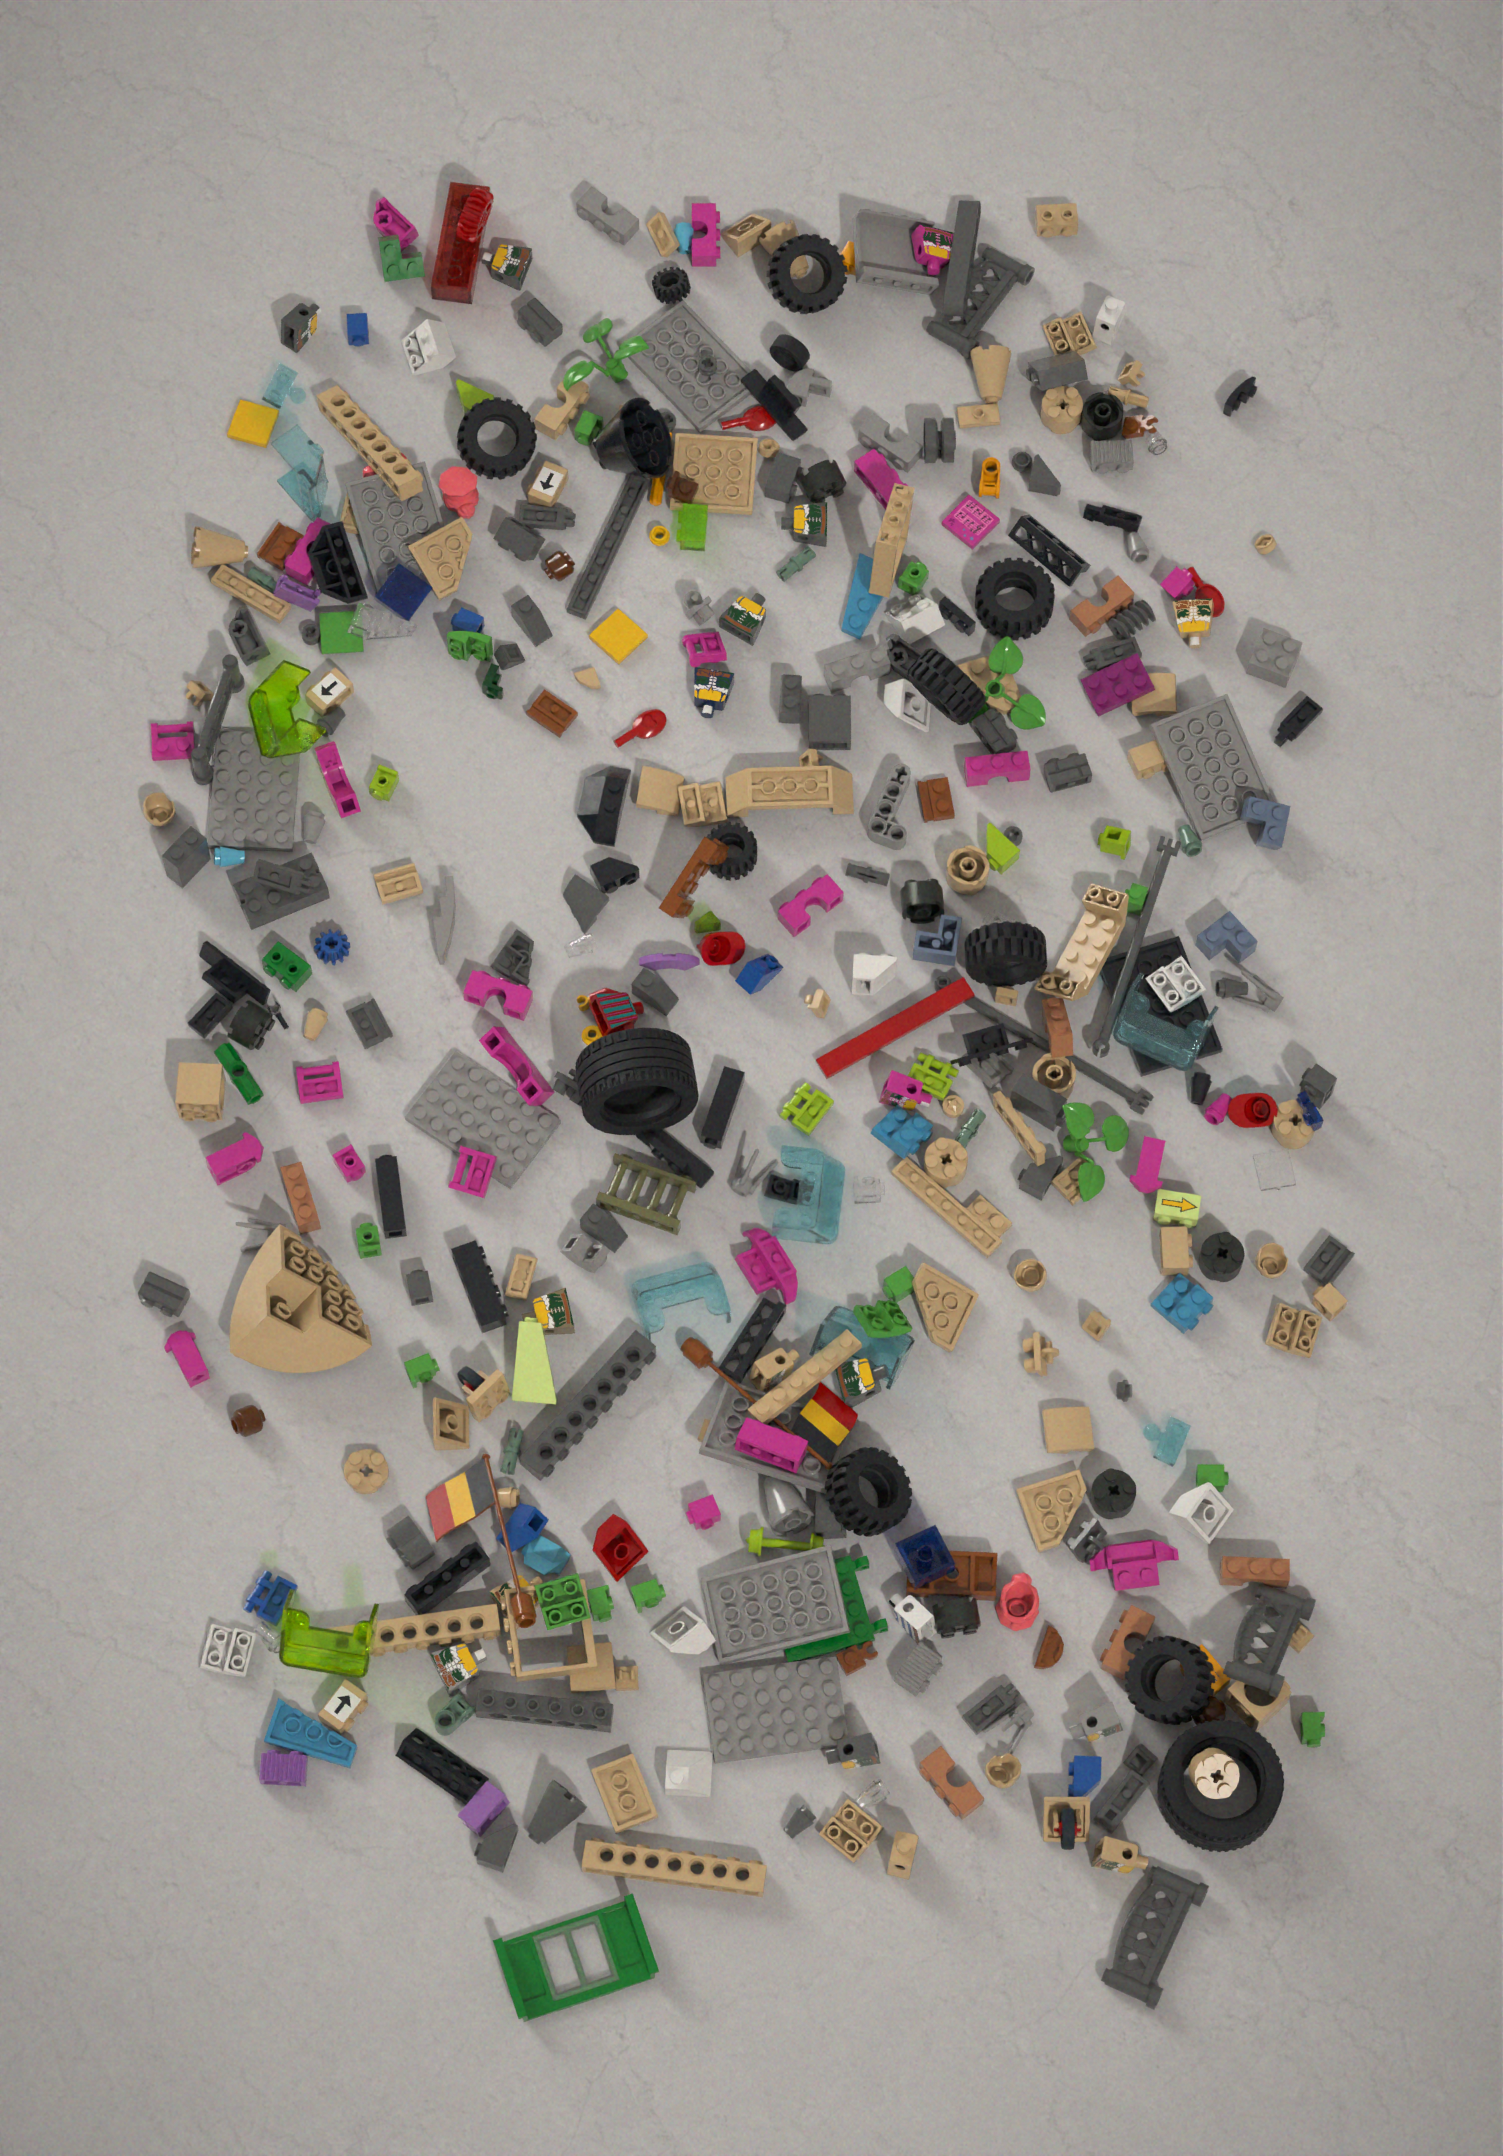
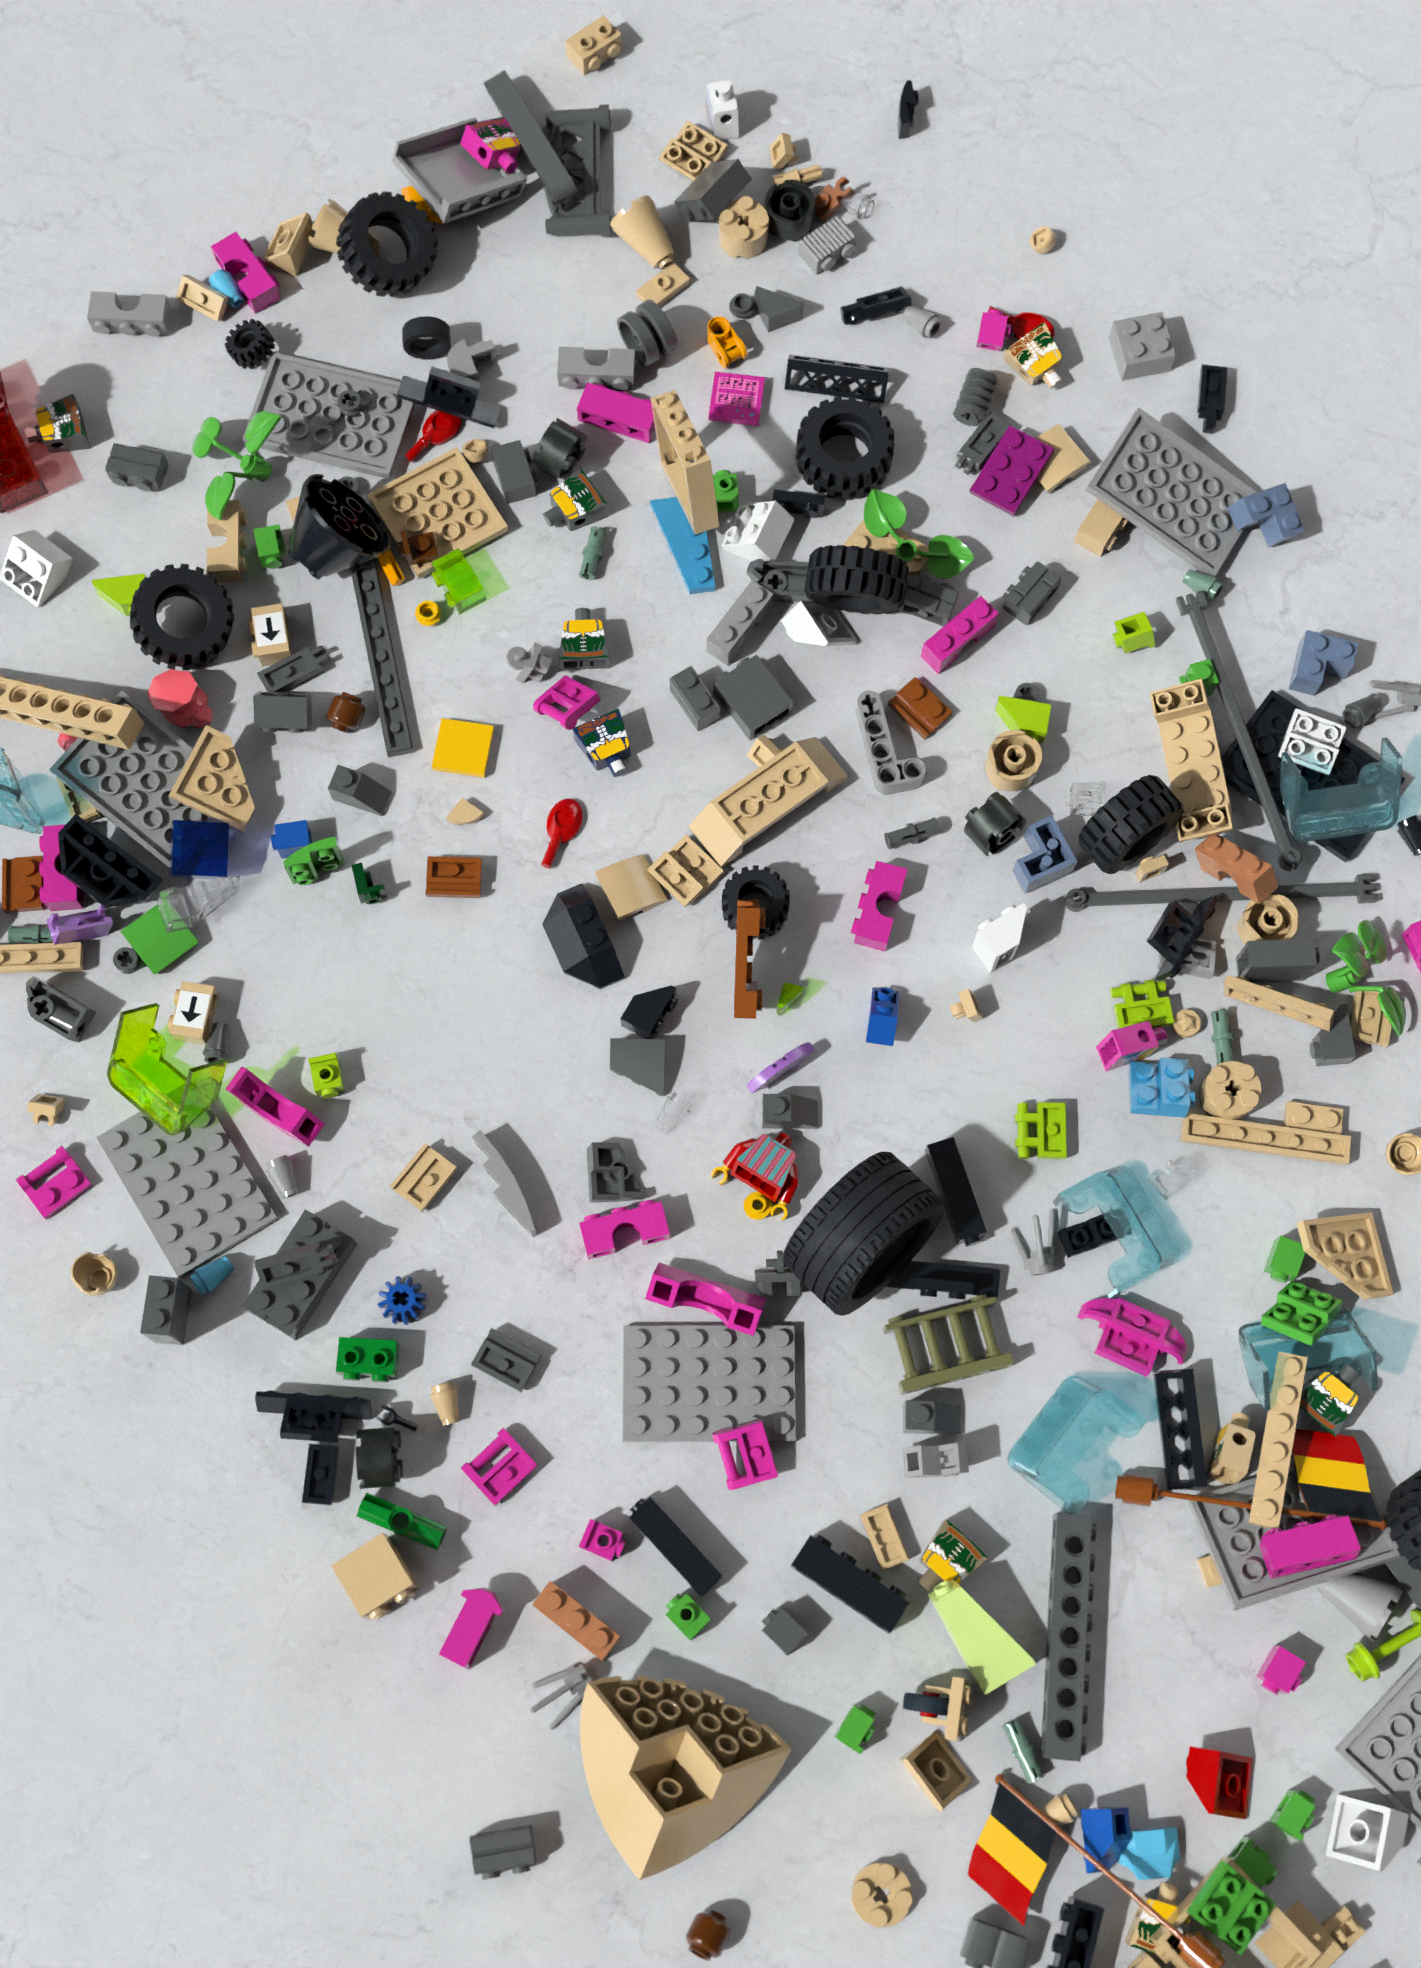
camera: 35 degrees left, 5 degrees up
(187, 1357) = (582, 1906): dark pink piece -> none
(230, 682) = (75, 1073): dark grey piece -> none
(508, 656) = (361, 844): dark grey slope -> none
(721, 948) = (823, 1015): red piece -> none
(895, 1028) = (1065, 980): red tile -> none
(1090, 617) = (929, 419): nougat arch -> none

